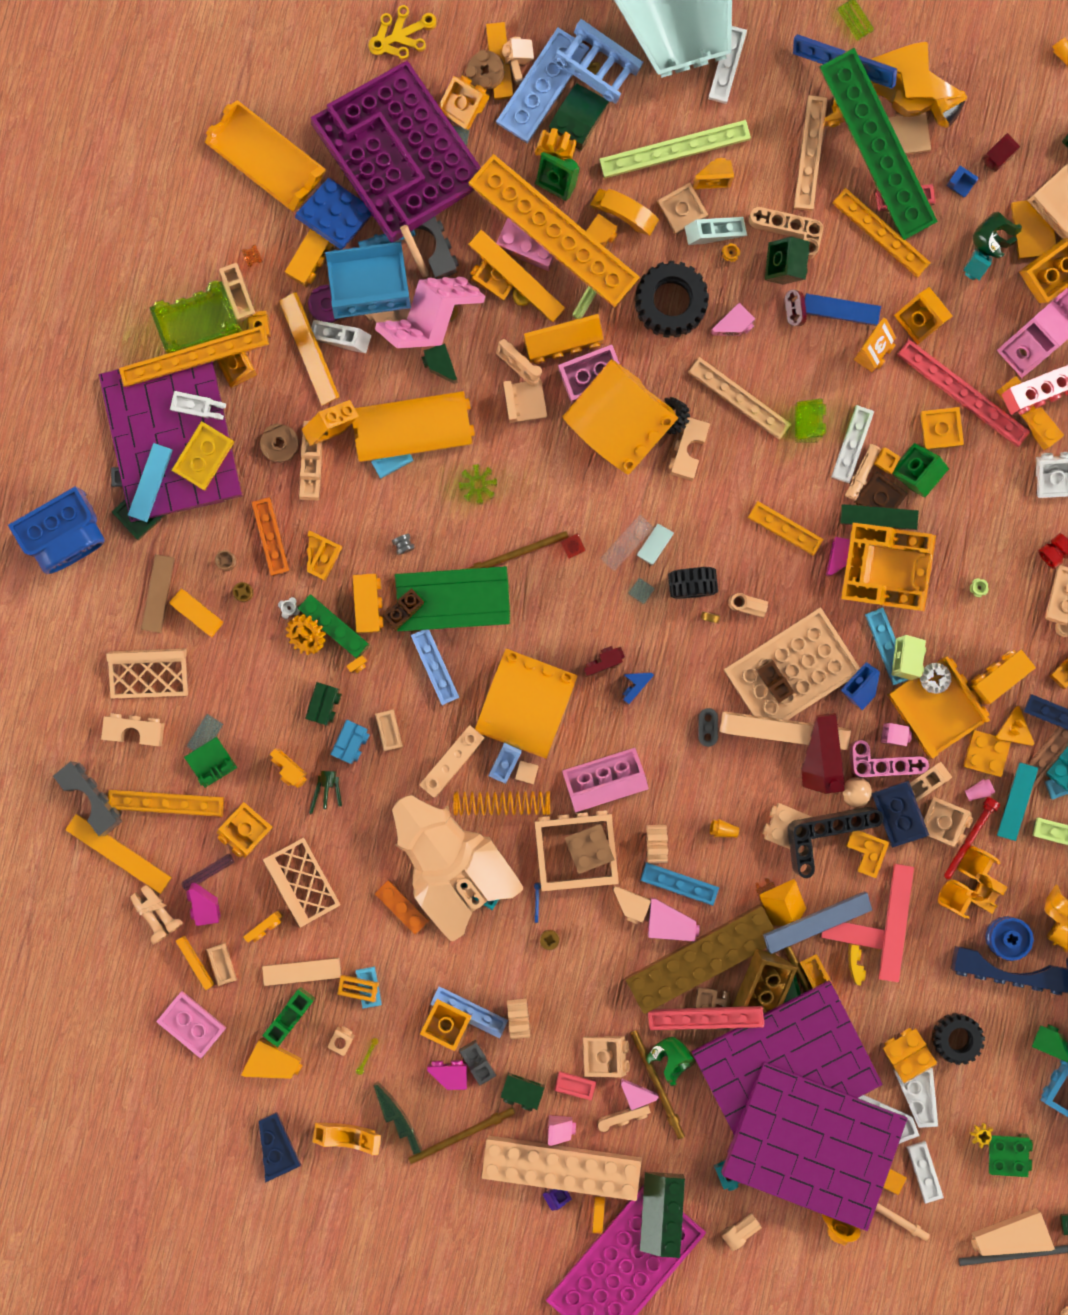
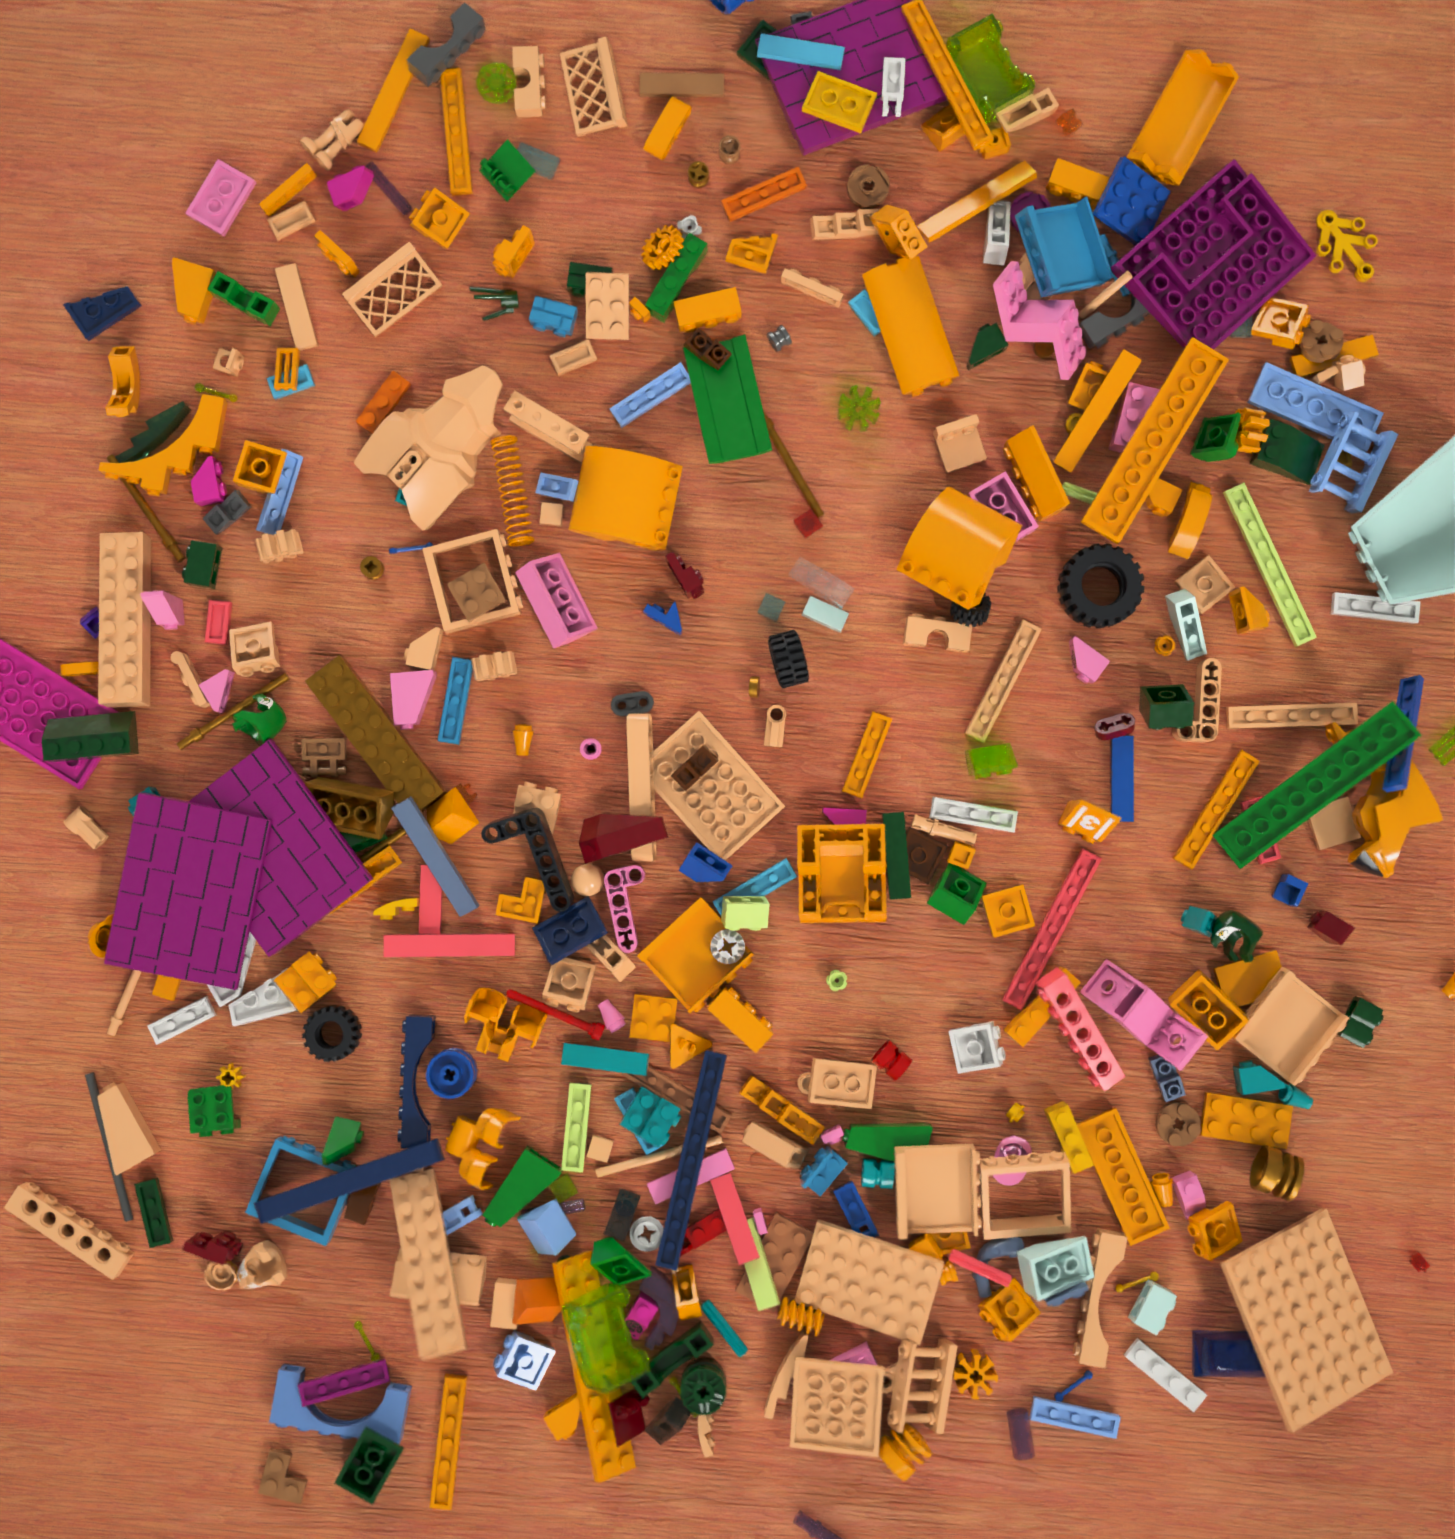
camera: 80 degrees right, 0 degrees up
(127, 759) = (496, 82): none -> clear neon green wheel
(350, 692) = (607, 305): none -> light nougat plate
(362, 507) = (812, 287): none -> light nougat plate
(432, 1121) = (155, 471): none -> light orange arch
(519, 363) = (1000, 430): light nougat plate -> none
(706, 1018) = (310, 750): coral tile -> none
(749, 770) = (585, 746): none -> bright pink cone
(896, 734) = (657, 912): bright pink slope -> none
(923, 315) = (1131, 870): light orange slope -> none

